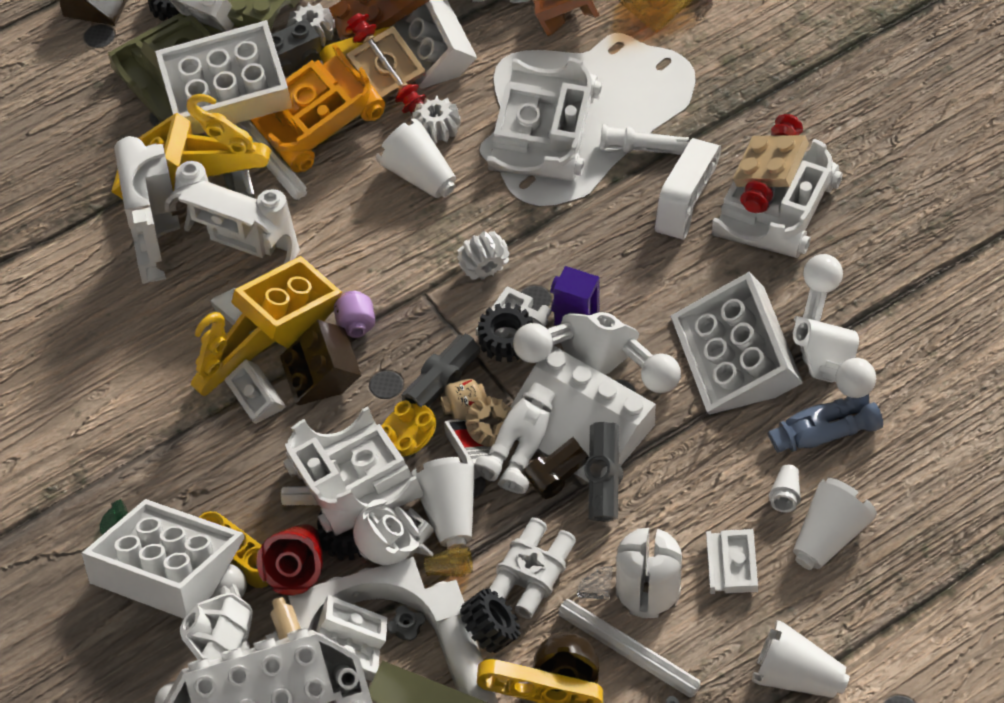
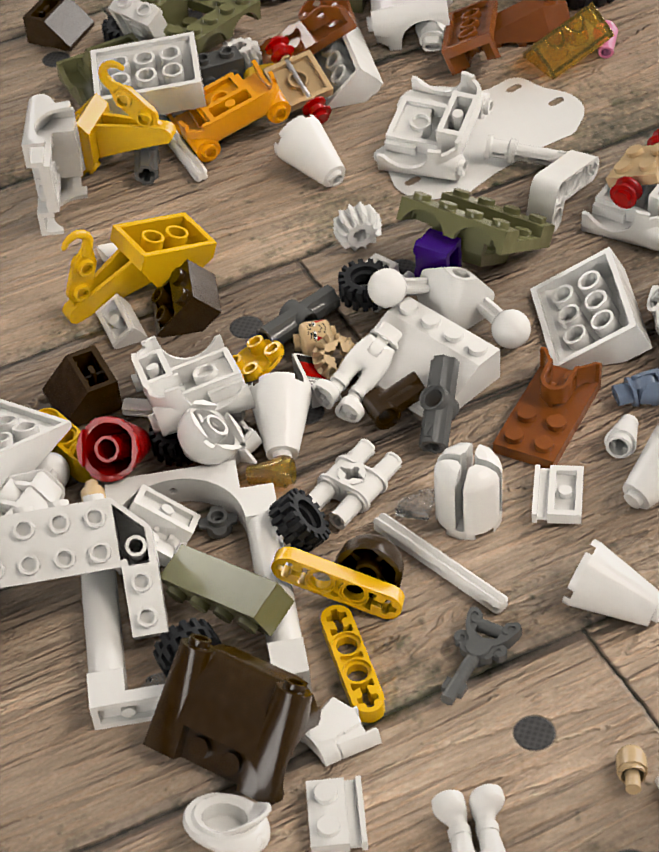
camera: 10 degrees right, 10 degrees down
(232, 217) = (136, 181): white piece -> none
(237, 481) = (83, 387): none -> dark brown slope
(354, 313) = (227, 264): lavender head -> none
(438, 118) = (340, 126): white gear -> none
(613, 248) = (485, 229): none -> olive piece
(709, 467) = (548, 412): none -> dark orange plate

